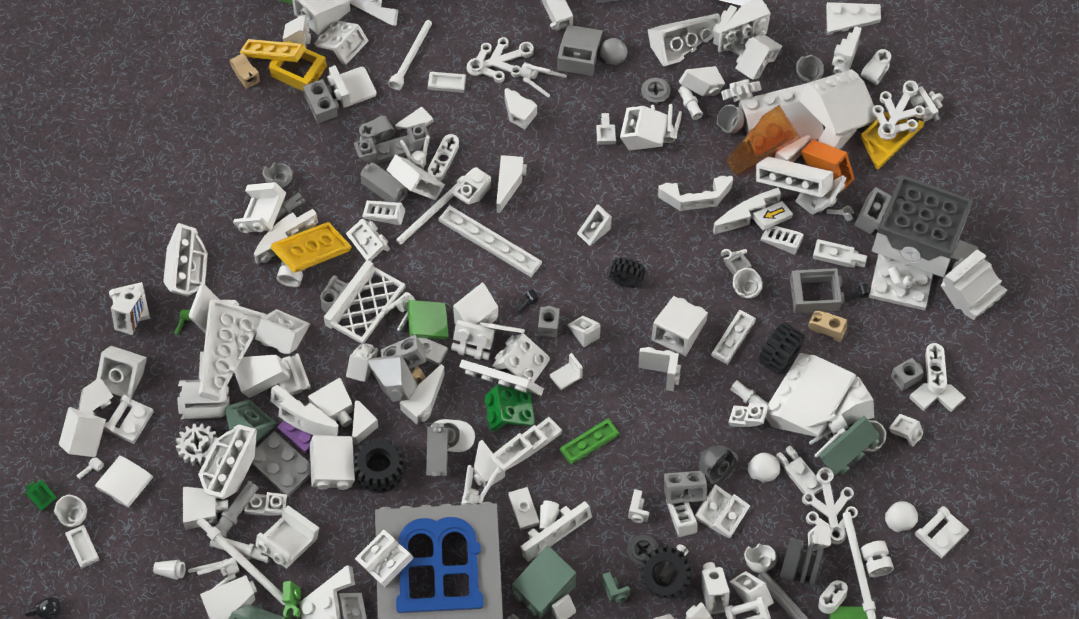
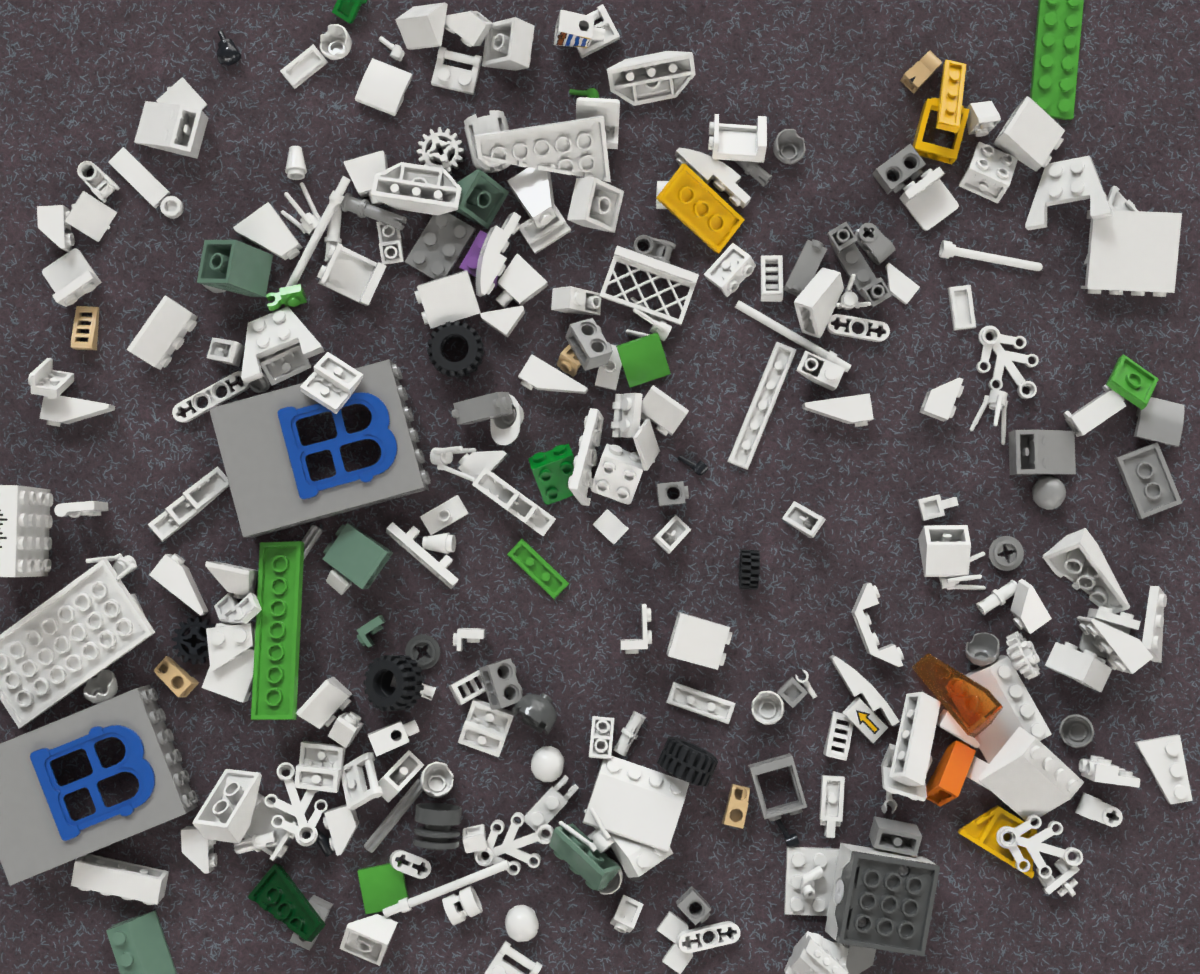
camera: 80 degrees right, 25 degrees up
(393, 377) = (553, 341): light grey slope -> none

